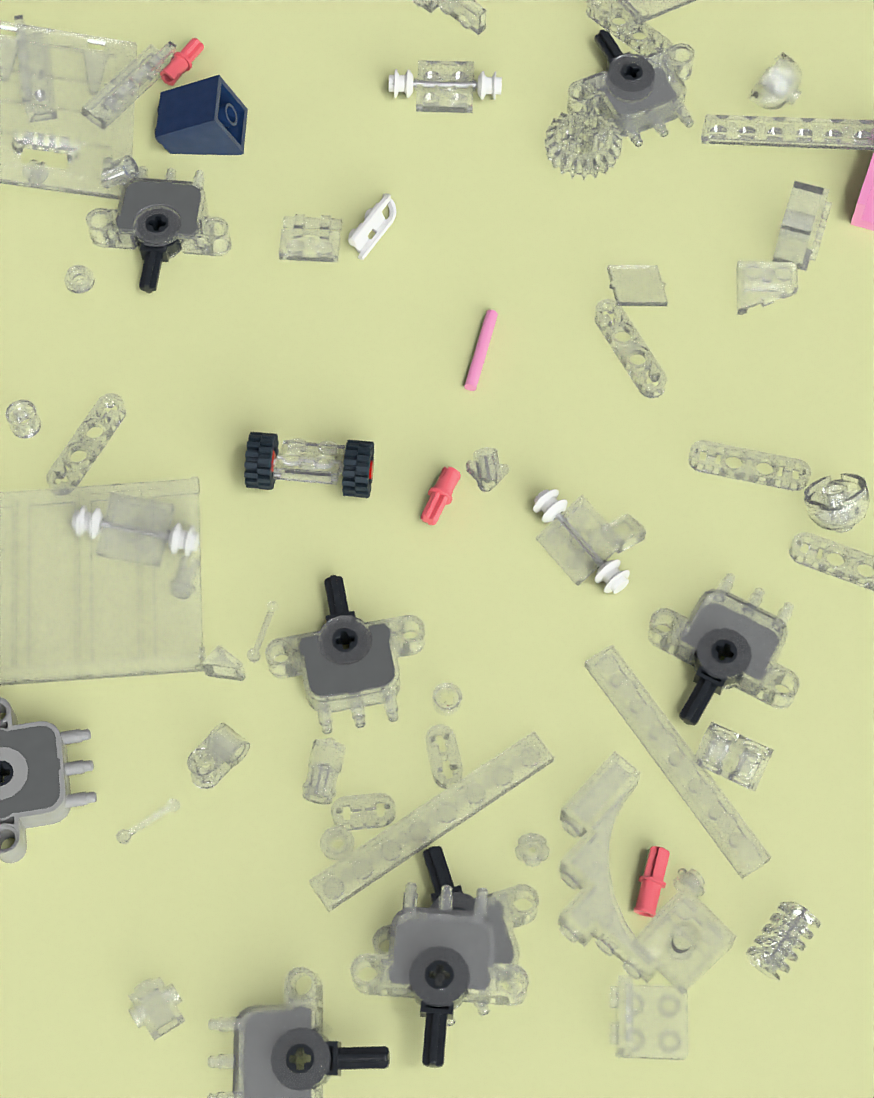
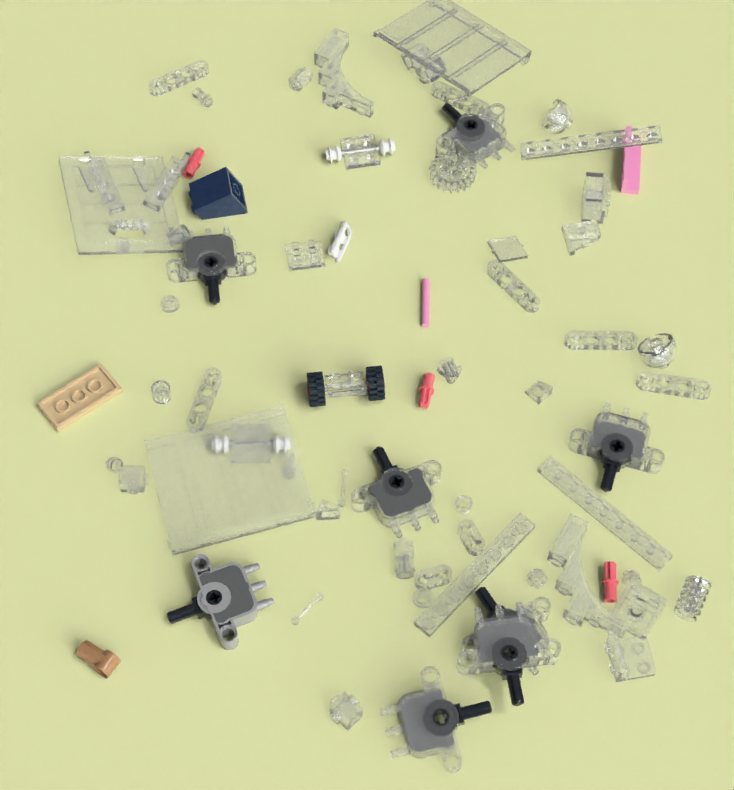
camera: 15 degrees left, 5 degrees down
(218, 751) = (338, 563): clear piece -> none
(580, 540) = (516, 400): clear plate -> none
(732, 756) = (637, 503): clear brick -> none

